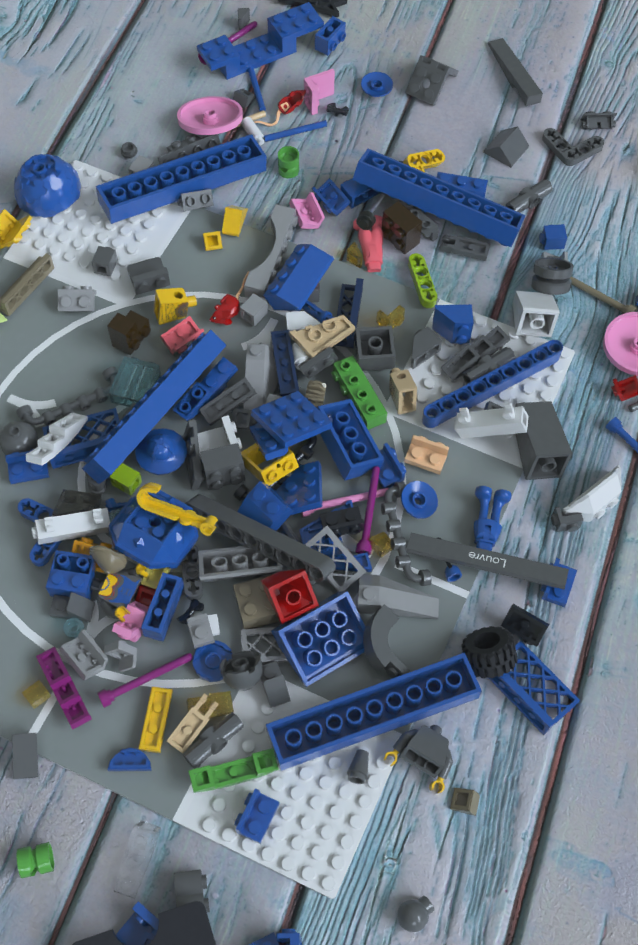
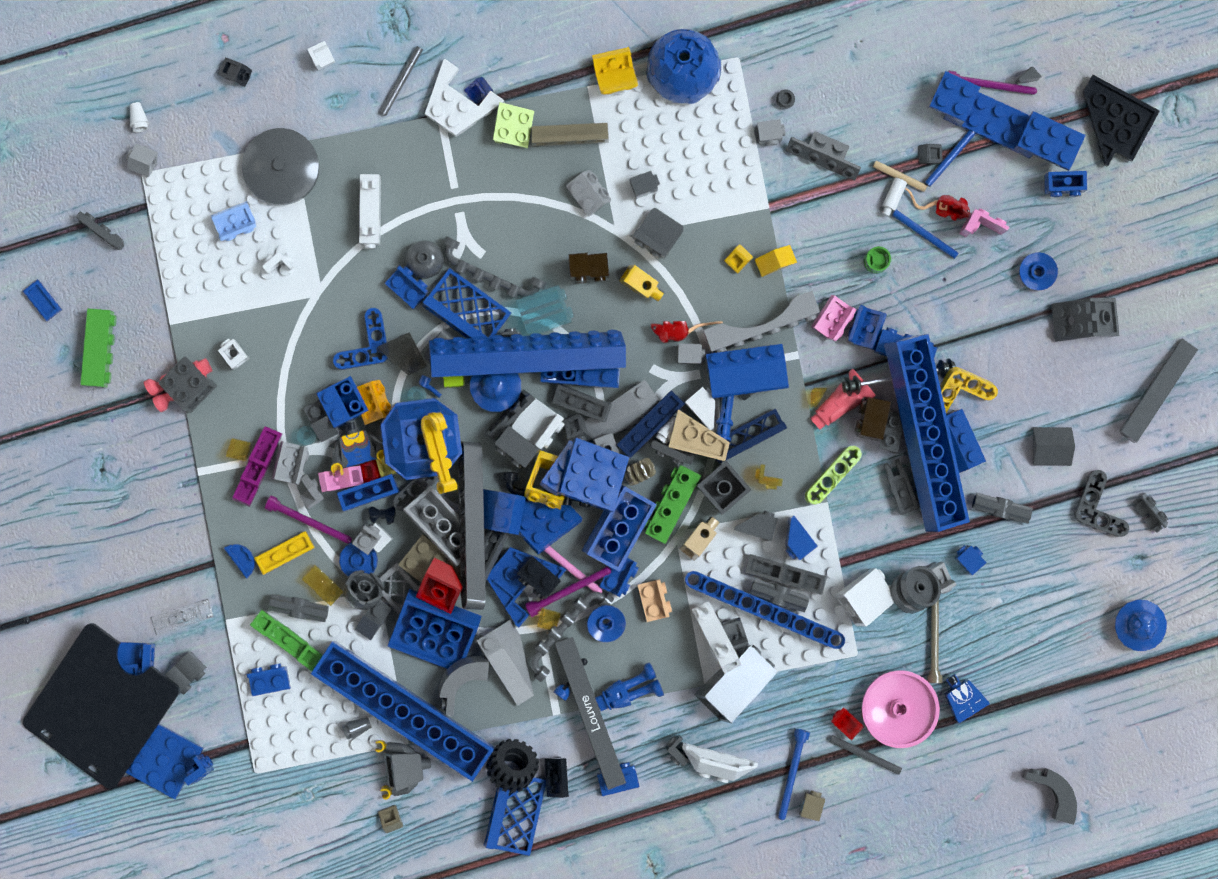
camera: 55 degrees right, 25 degrees up
(25, 756) = (190, 480): dark grey hinge -> none
(34, 860) = (126, 546): bright green wheel -> none
(57, 439) = (443, 295): white slope -> none
(71, 526) = (380, 369): white brick -> none
(108, 559) = (369, 424): dark tan hat -> none
(181, 335) = (618, 314): coral bracket -> none
(191, 173) = (782, 181): blue brick -> none
(191, 725) = (296, 585): tan hinge -> none
(196, 200) = (770, 211): hinge -> none
(210, 115) = (877, 145): bright pink dish -> none
(332, 108) = (977, 249): black piece -> none
(350, 558) = (503, 571): light grey window -> none
(414, 914) = (283, 837): dark grey piece -> none

